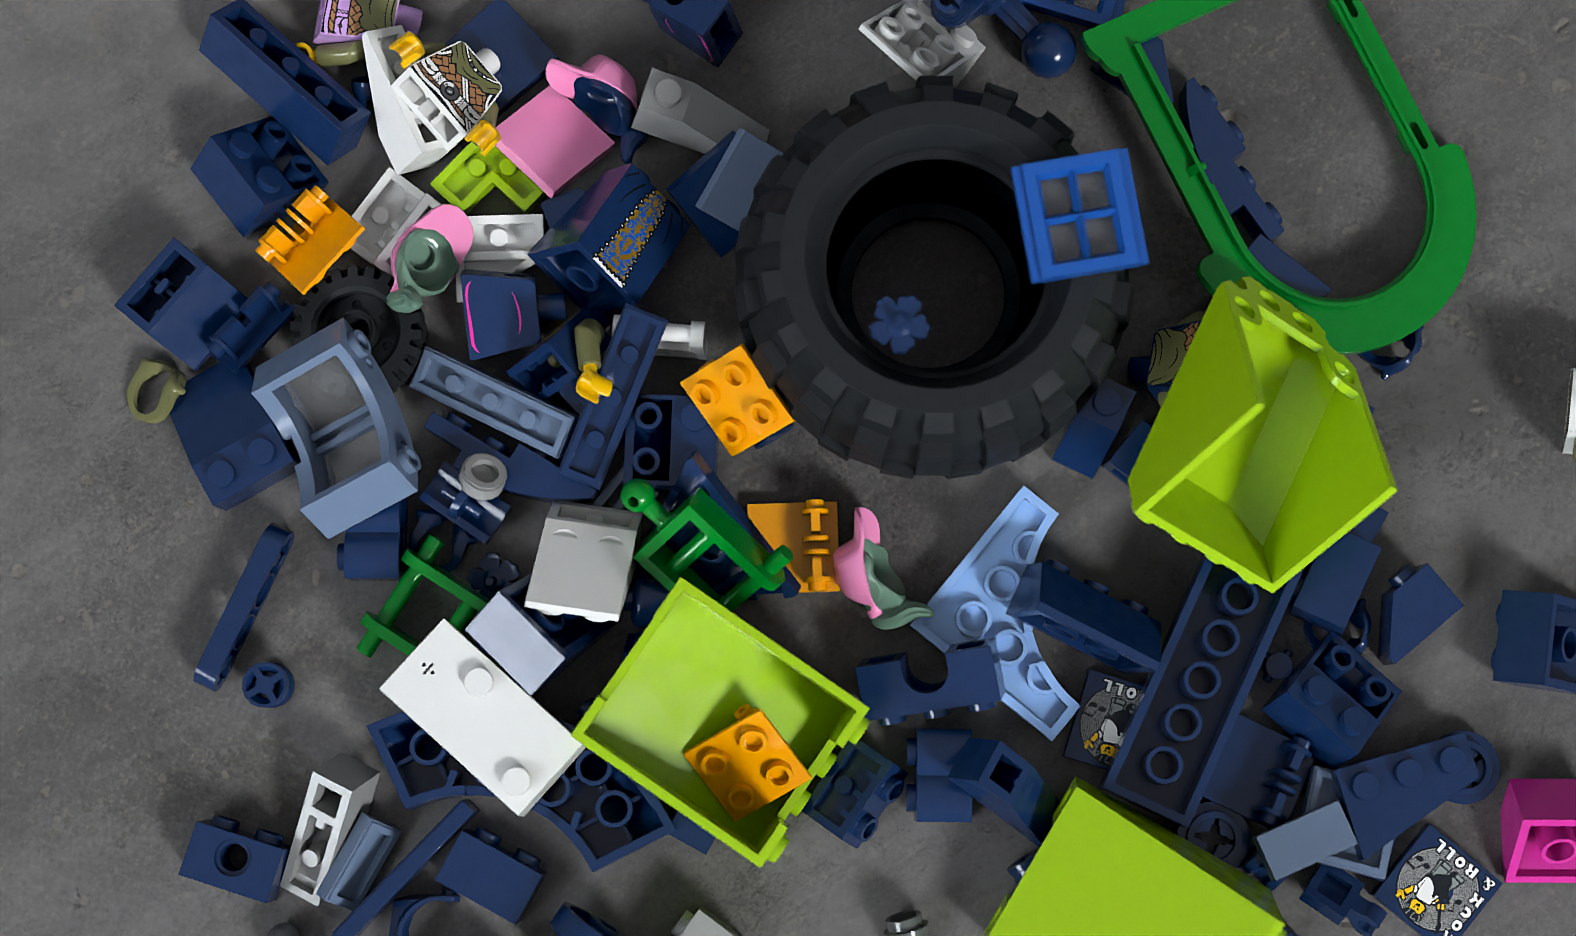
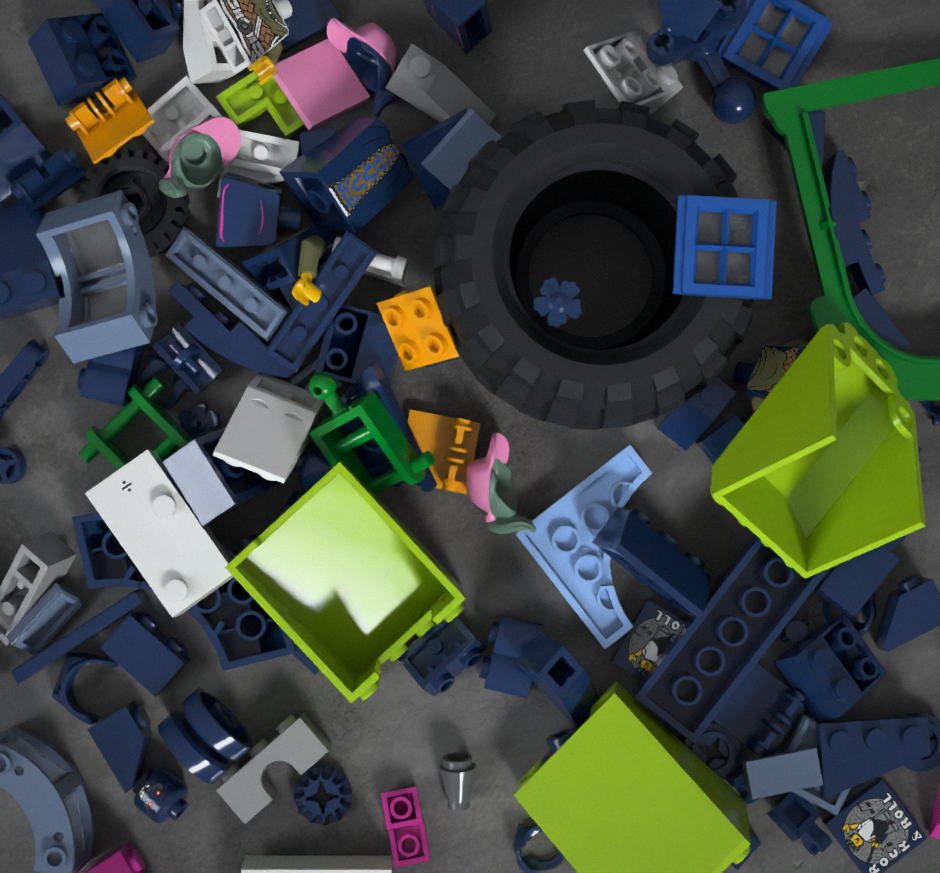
camera: 10 degrees right, 5 degrees up
(482, 476) = (204, 342): light grey tile -> none
(747, 763) = (362, 614): light orange hinge -> none
(894, 691) = (490, 584): dark blue arch -> none

